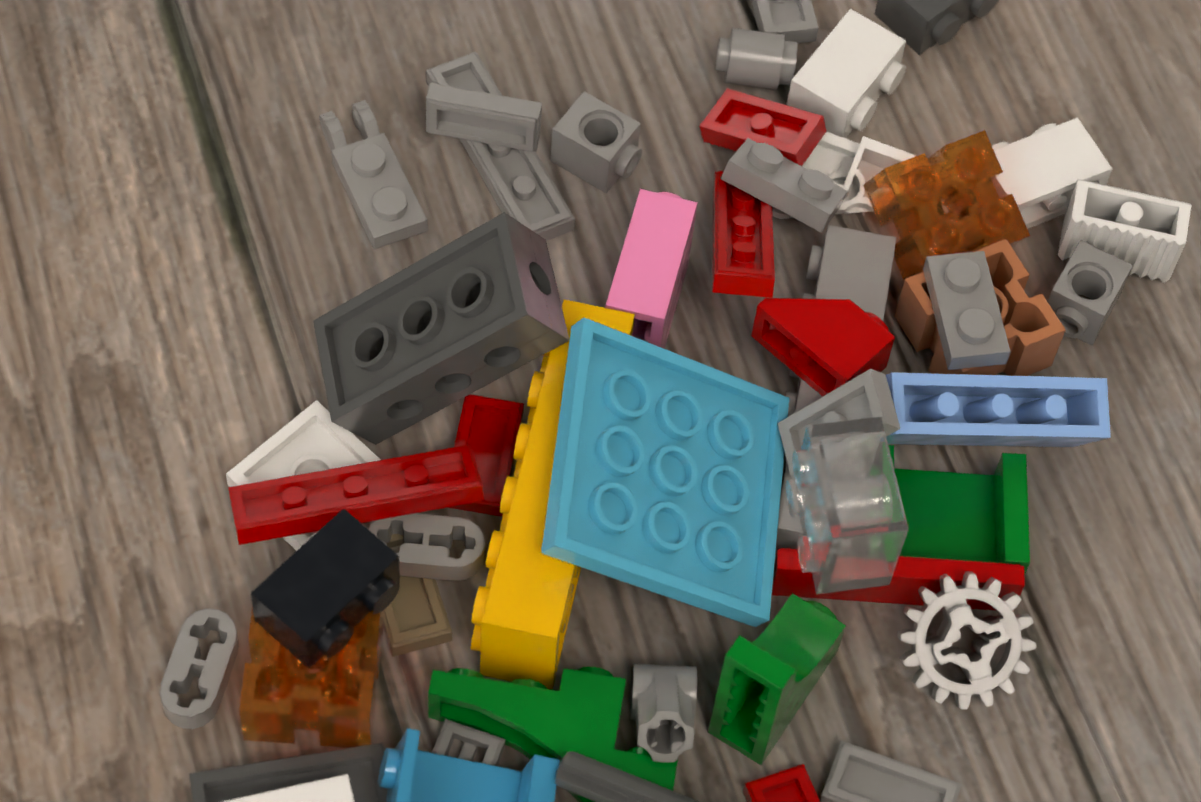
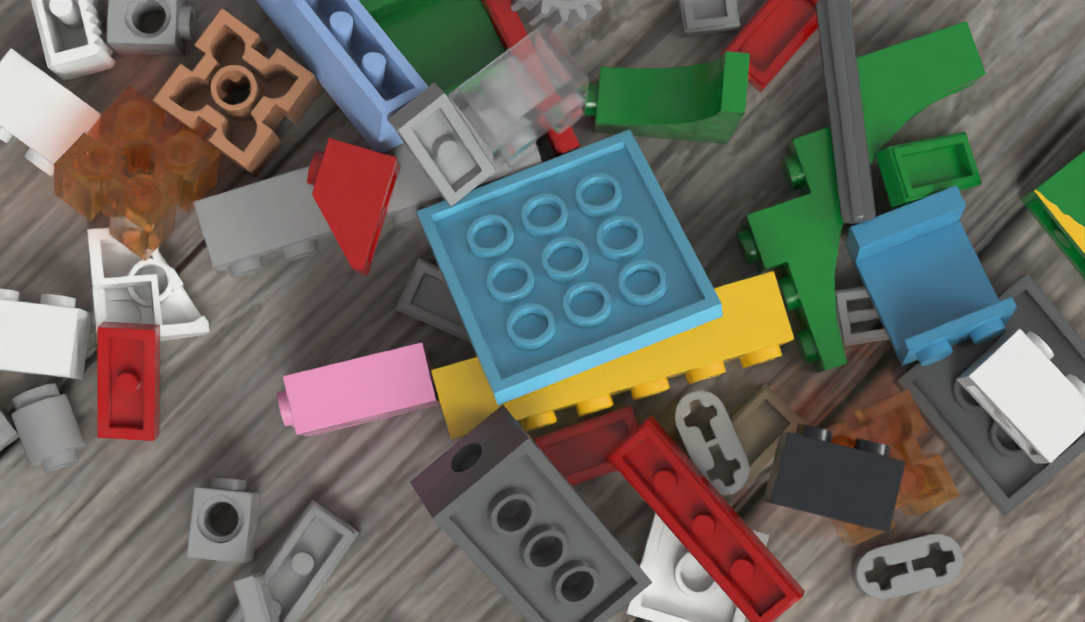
camera: 115 degrees left, 25 degrees up
(664, 708) = (740, 179): light grey piece -> none
(741, 242) = (271, 332): red tile -> none
(784, 184) = (190, 326): light grey plate -> none
(966, 310) = (254, 97): light grey plate -> none

